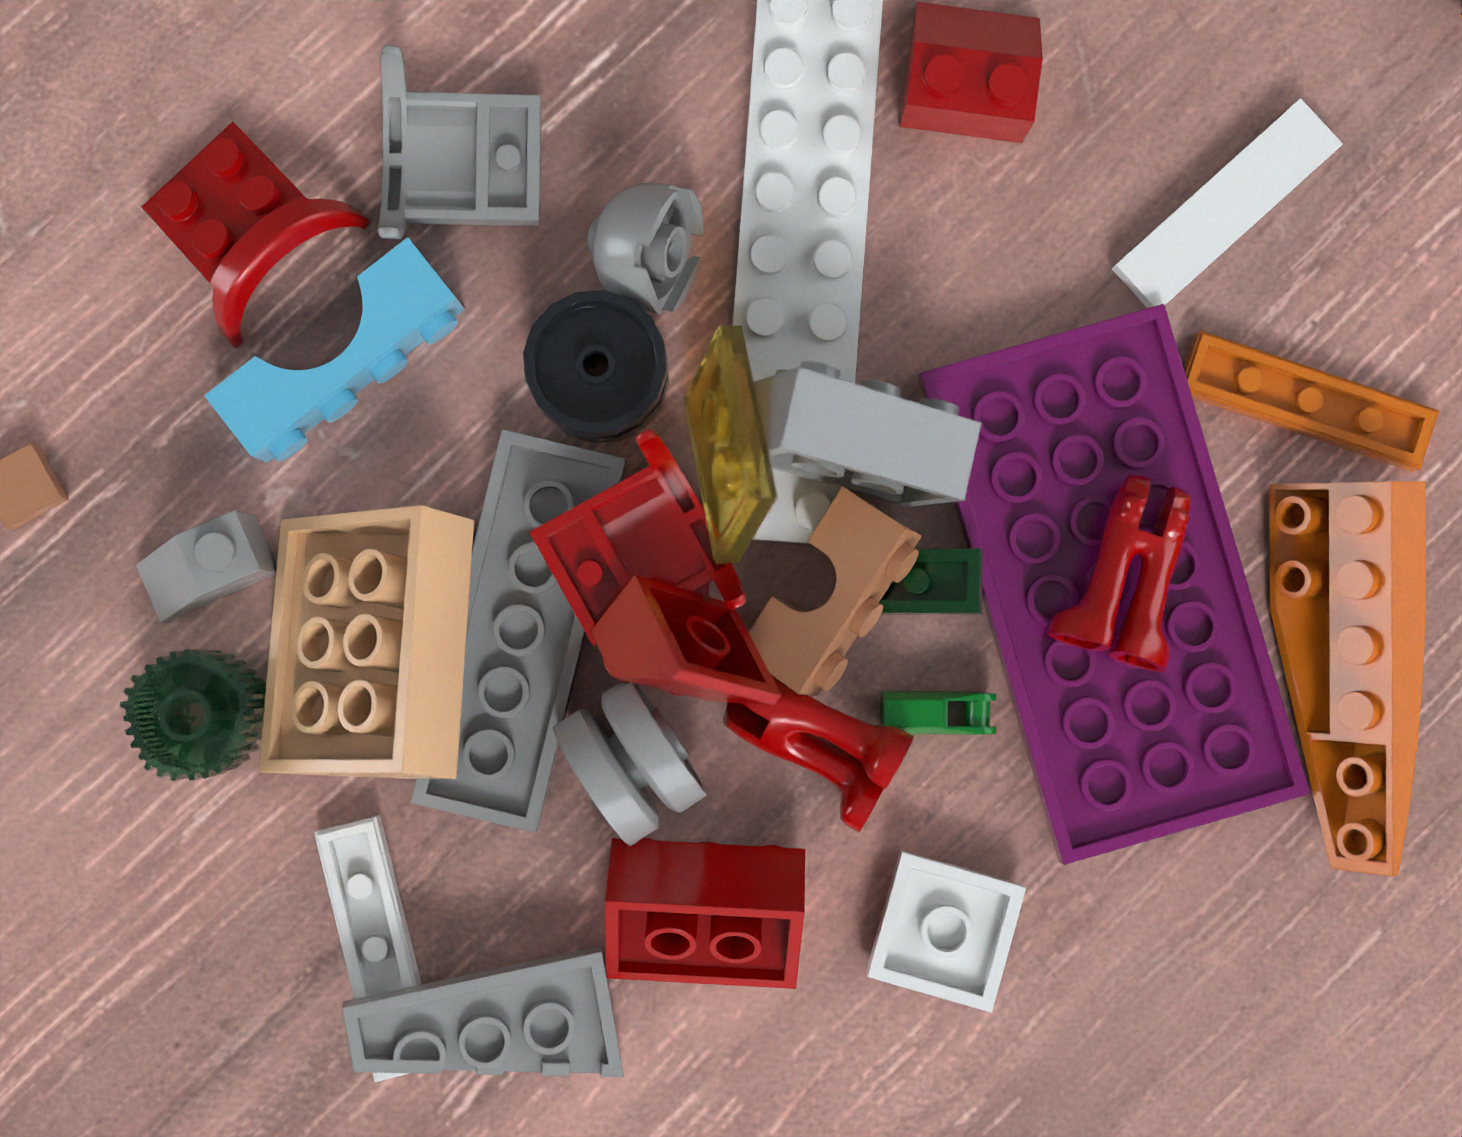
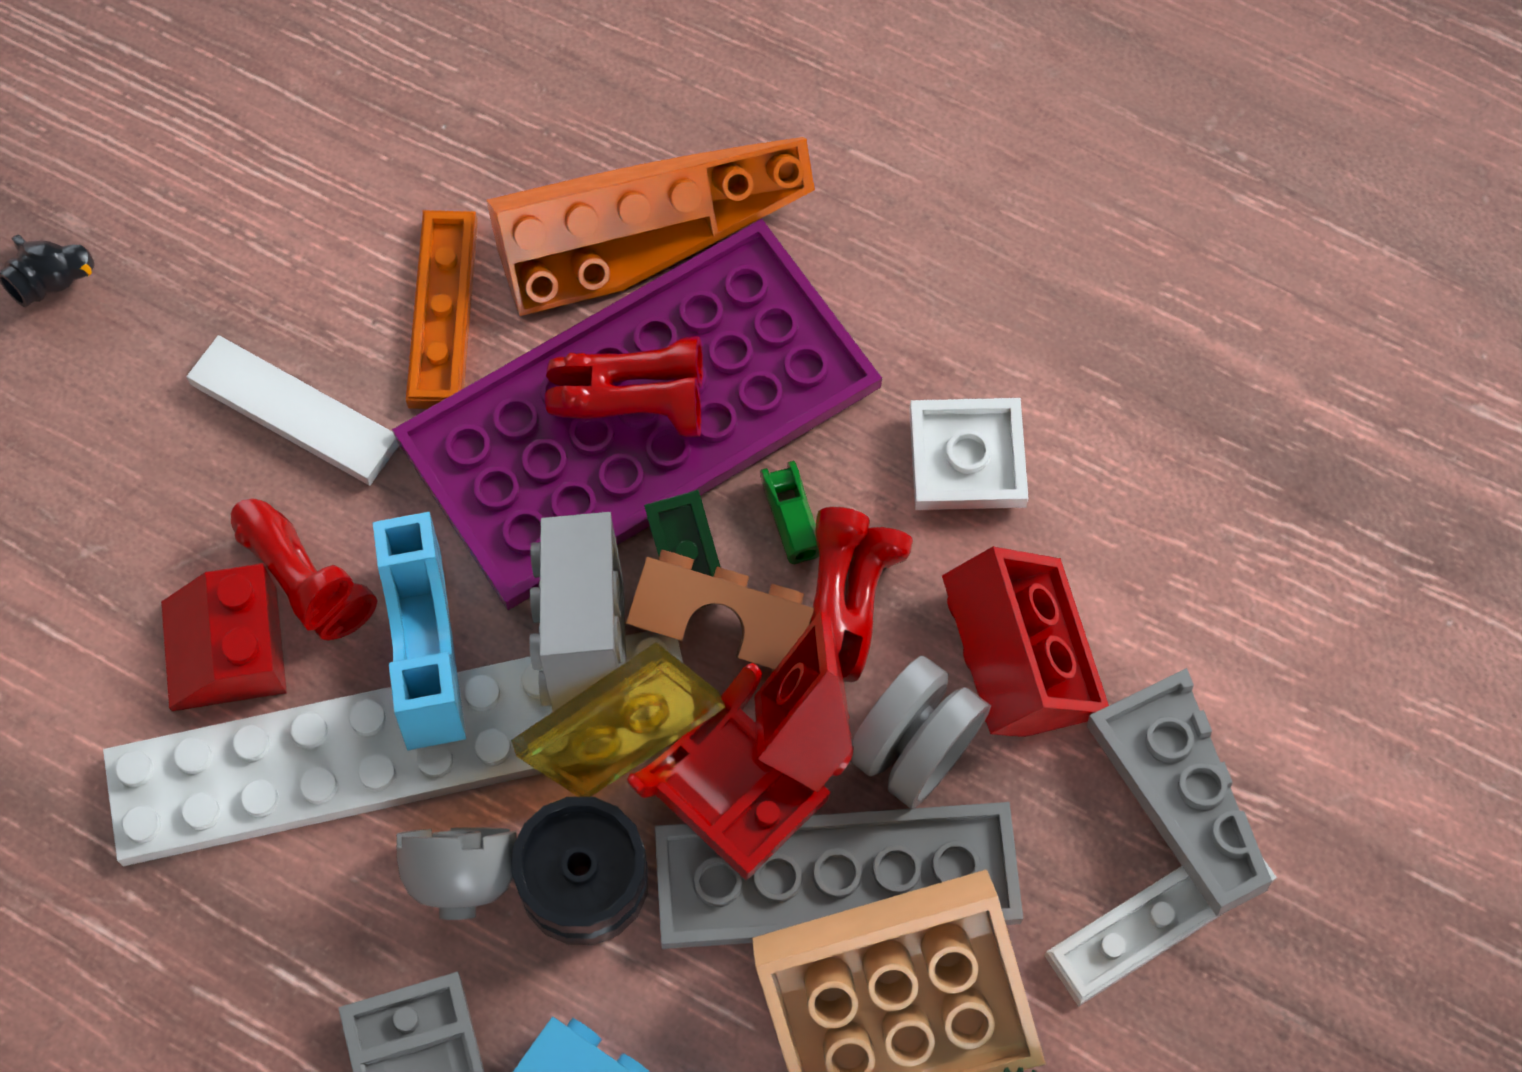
camera: 105 degrees left, 20 degrees down
(850, 260) = (421, 633): none -> medium azure arch
(988, 168) = (321, 598): none -> red piece

